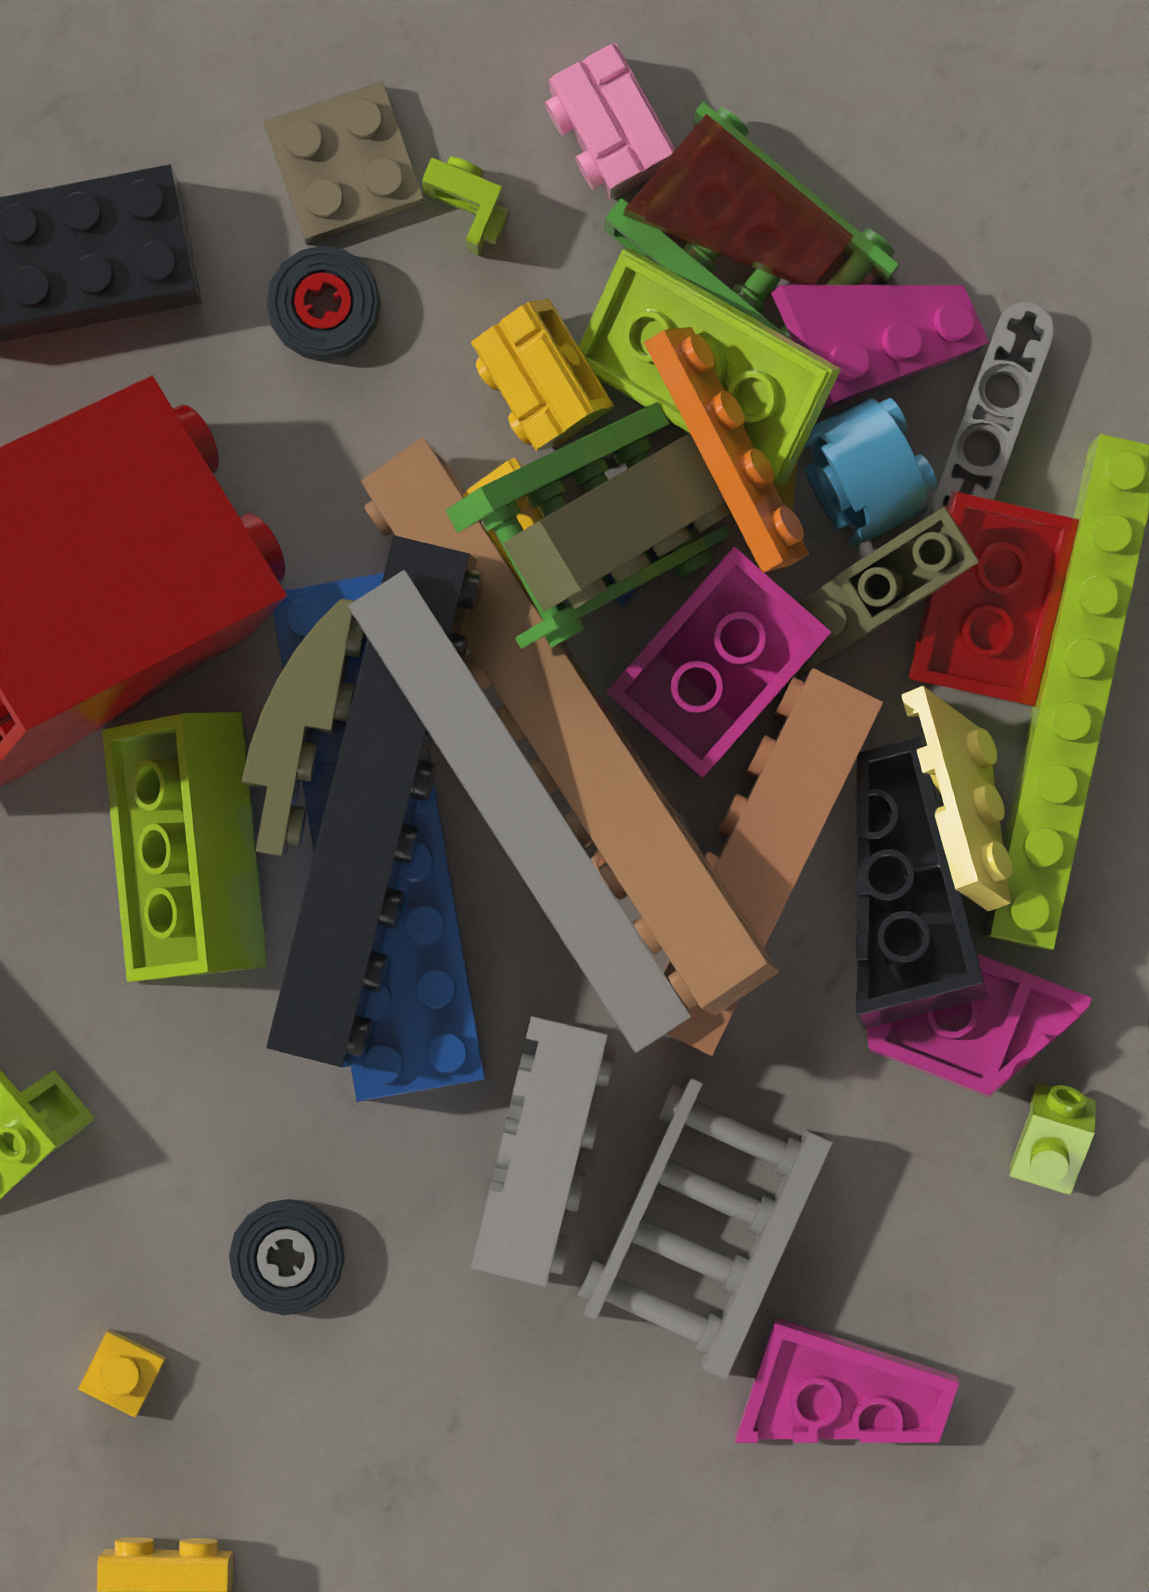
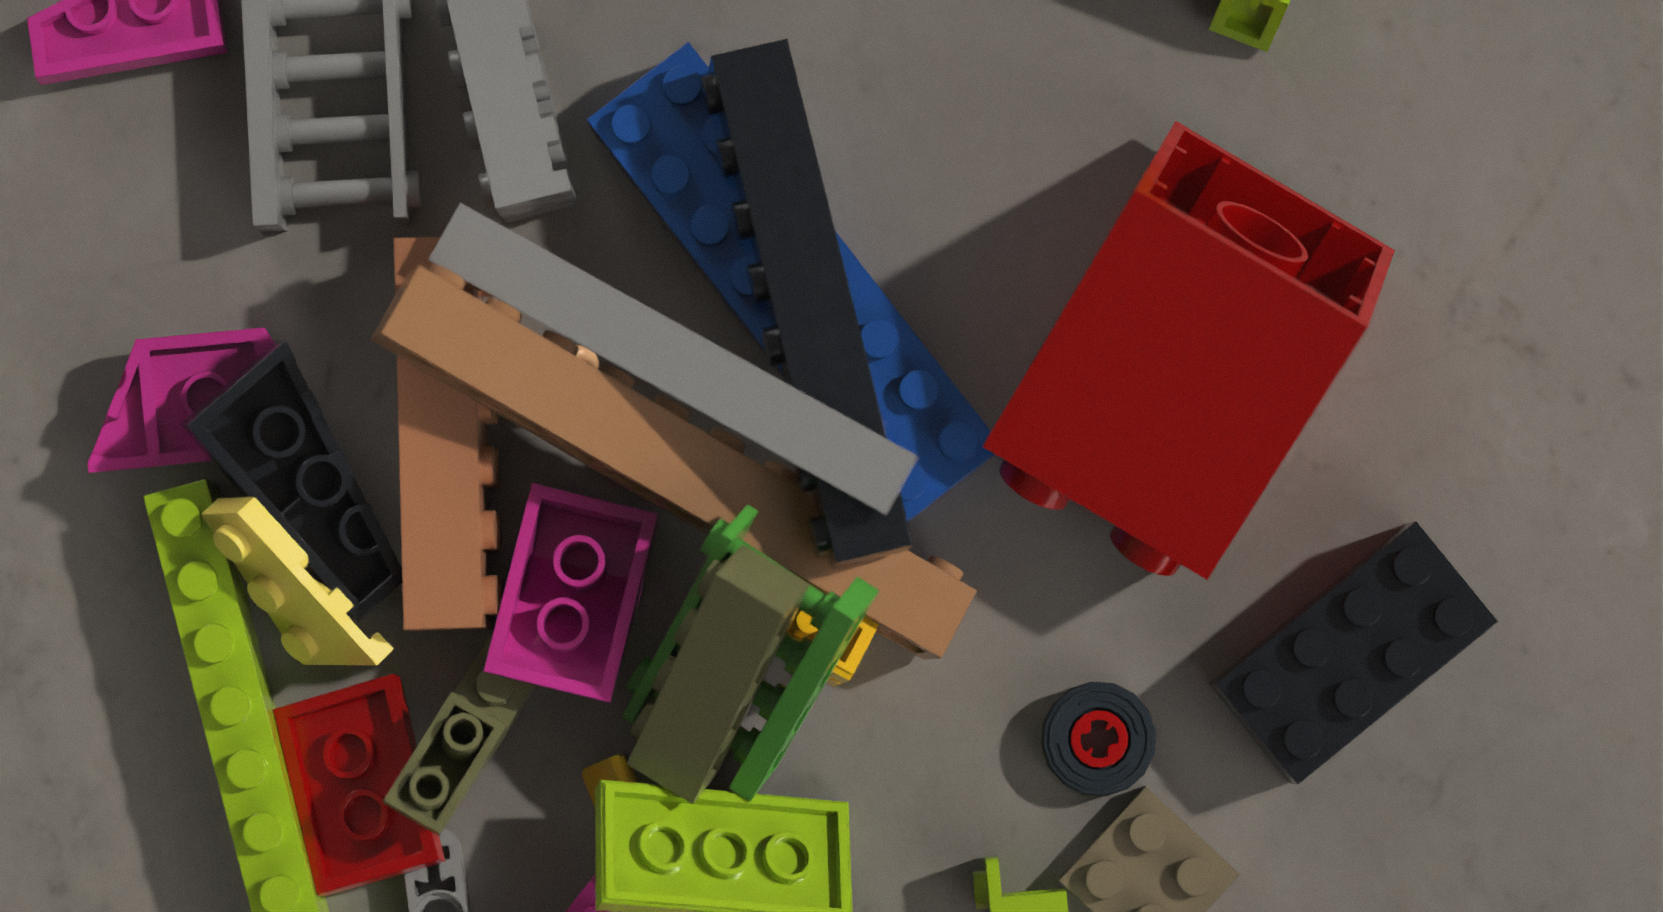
camera: 155 degrees right, 0 degrees up
(184, 846) = (960, 188): lime slope -> none
(304, 699) = (916, 363): olive slope -> none
(540, 375) = (867, 773): yellow brick -> none
(718, 431) = (661, 784): orange plate -> none
(868, 470) = (529, 839): dark azure brick -> none
(1054, 1137) = (60, 337): lime bracket -> none

